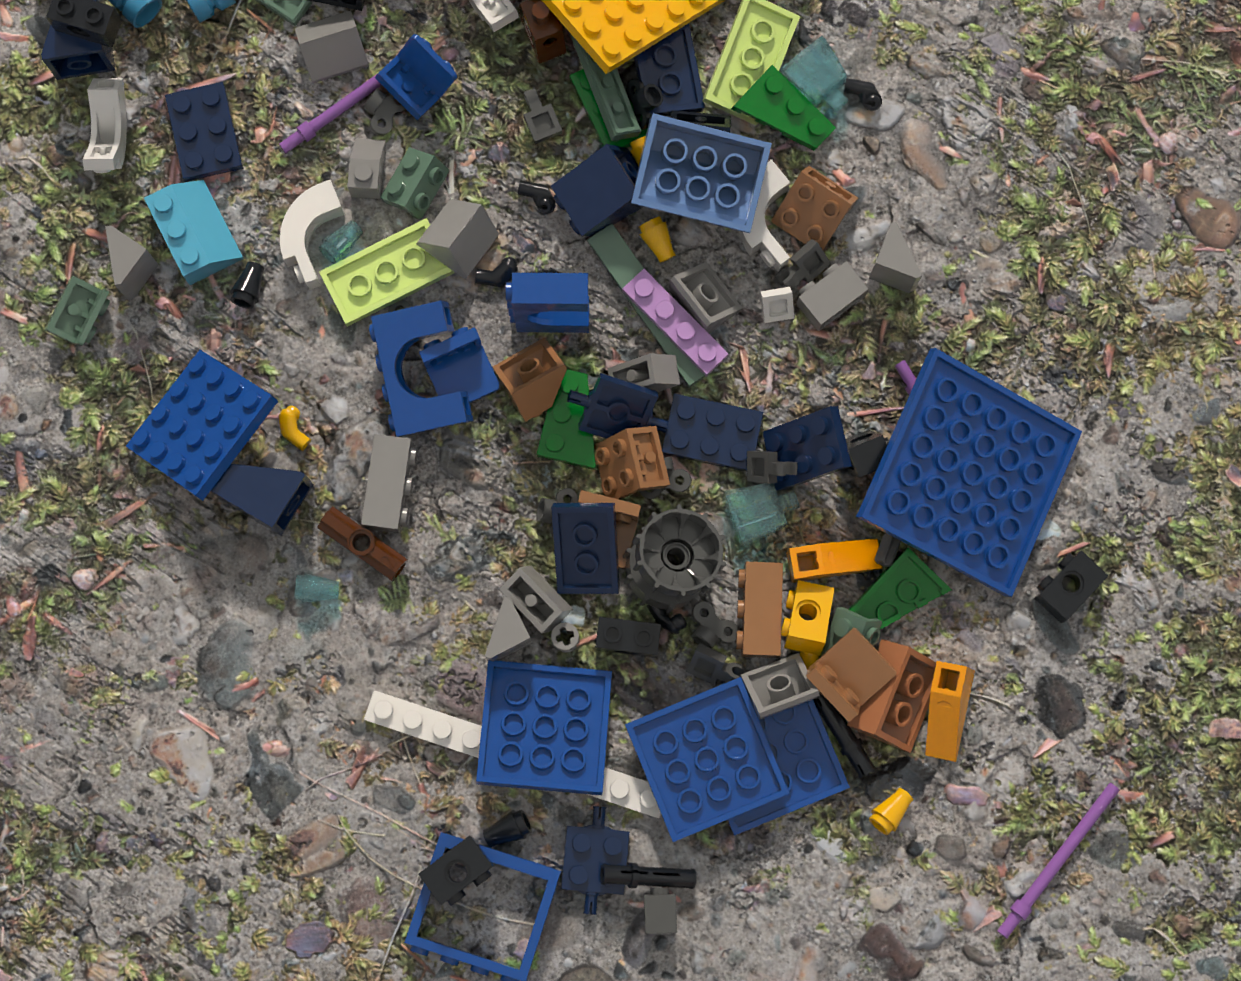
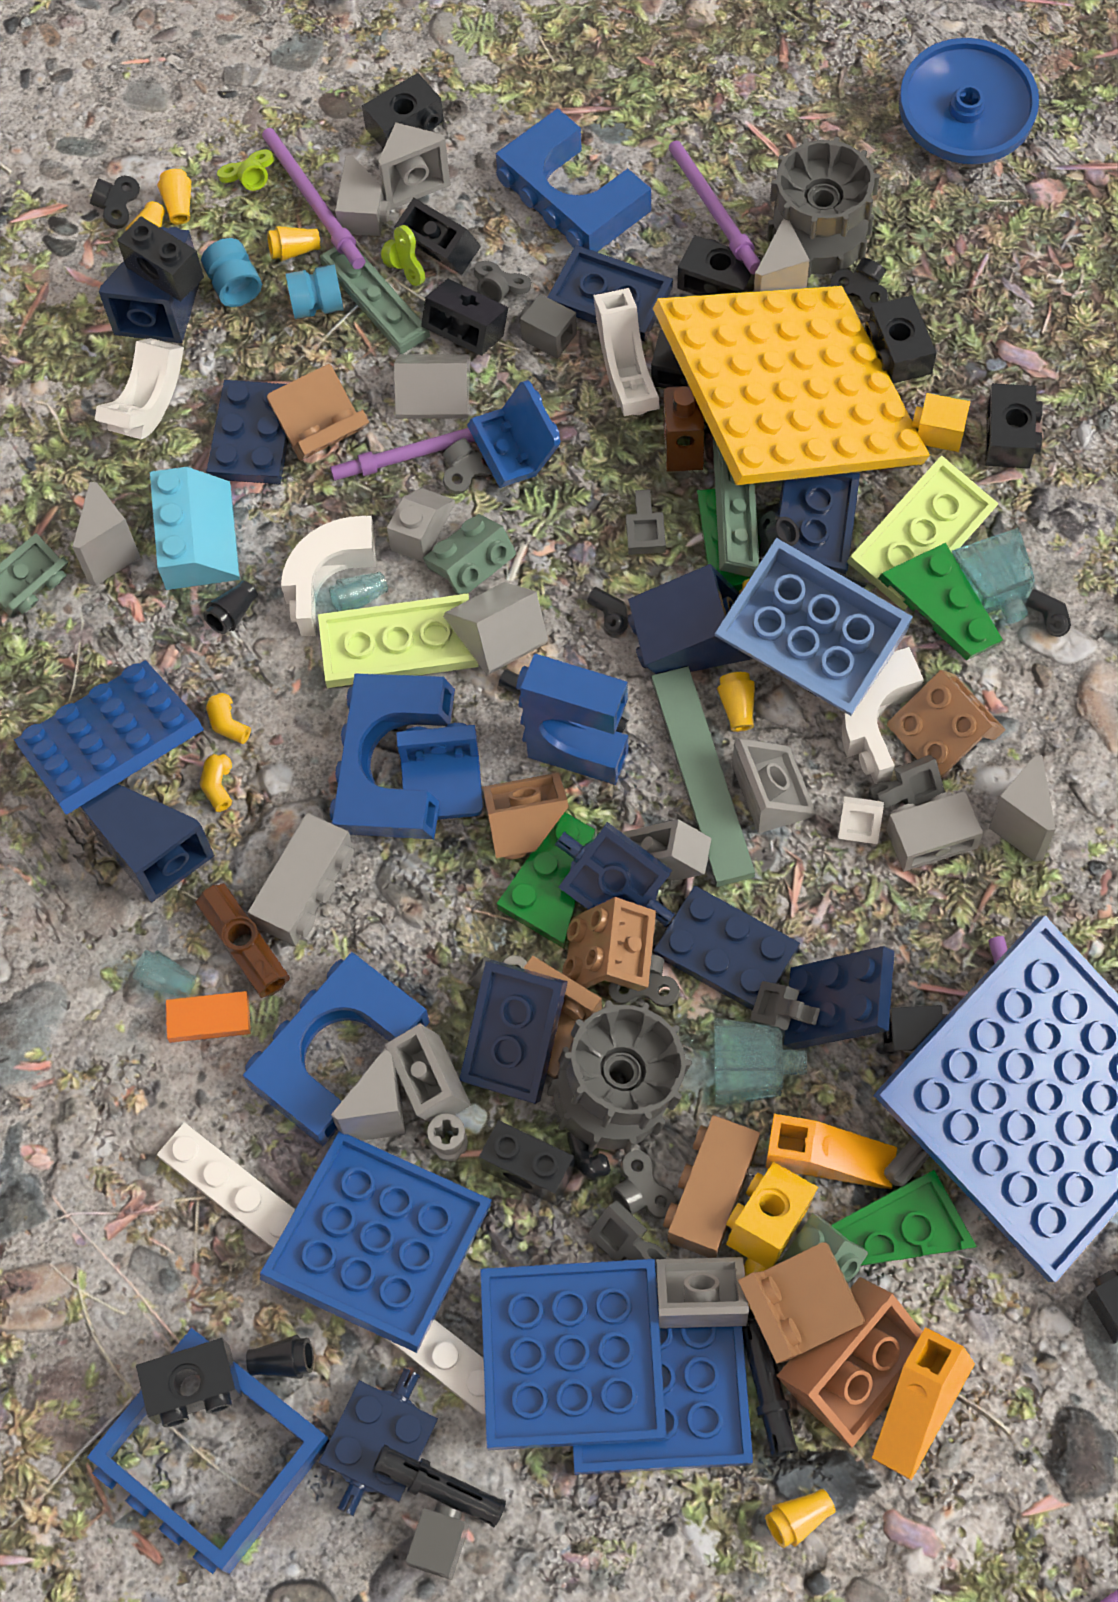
camera: 25 degrees right, 15 degrees down
(252, 103) = (315, 412): none -> medium nougat bracket
(276, 377) = (221, 721): none -> yellow arm
(359, 607) = (208, 1016): none -> orange tile
(457, 556) = (349, 994): none -> blue arch
(675, 322) = (725, 801): lavender plate -> none

